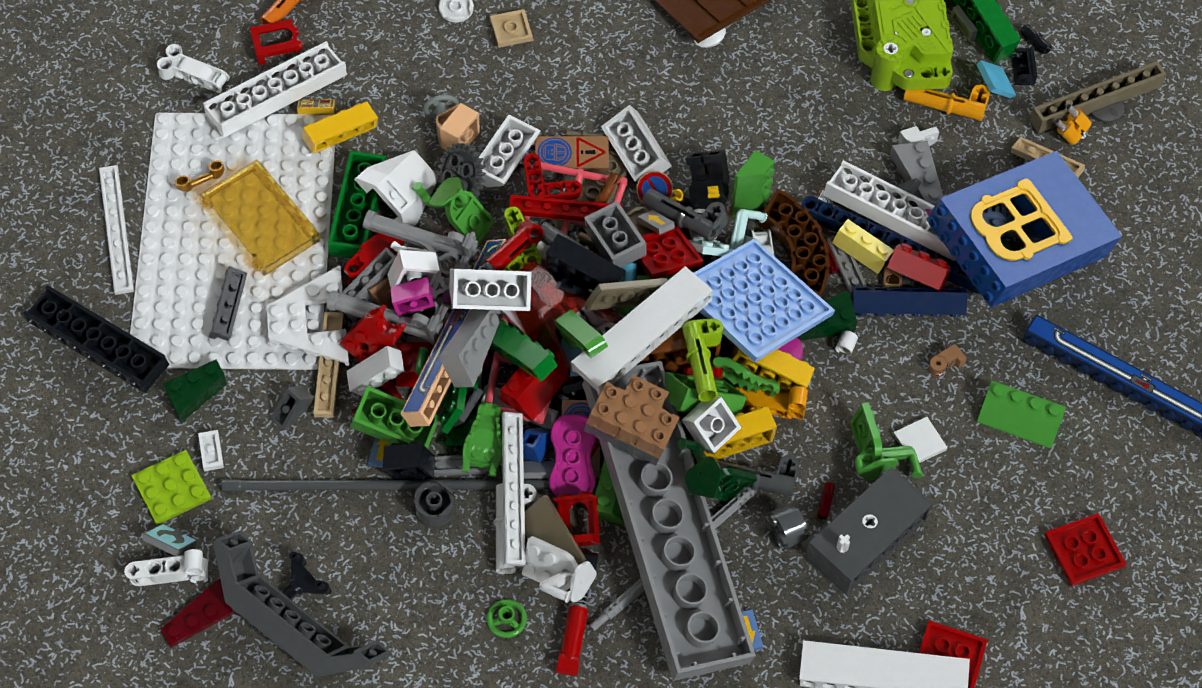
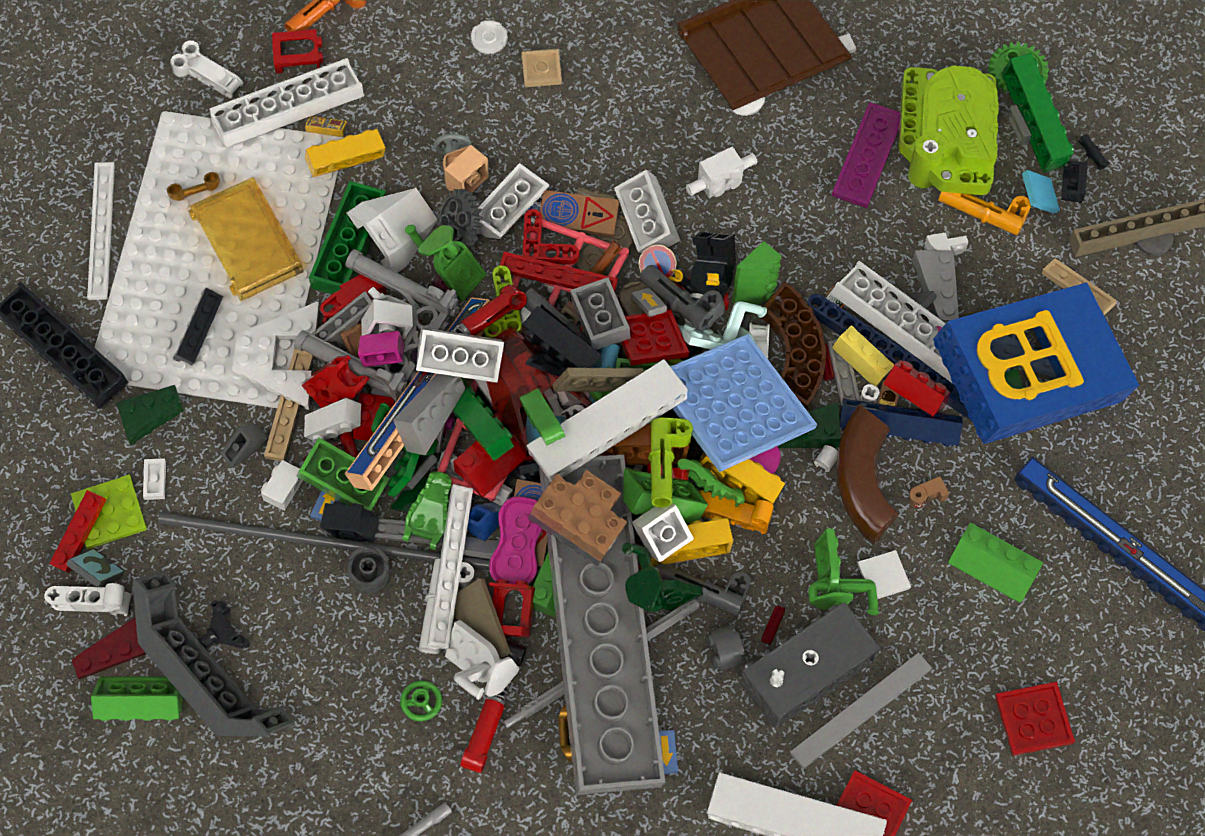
camera: 10 degrees right, 5 degrees up
(145, 508) = (78, 530): none -> red plate
(231, 656) = (135, 698): none -> bright green slope
(336, 438) = (281, 485): none -> white brick
(653, 642) = (563, 734): none -> pearl gold bar
(698, 99) = (721, 173): none -> white brick
(830, 68) = (867, 155): none -> magenta plate
(875, 279) = (869, 391): none -> white bush
(879, 352) = (859, 477): none -> reddish brown brick
(922, 566) = (860, 711): none -> light grey tile
(1073, 127) = (1115, 254): light orange piece -> none

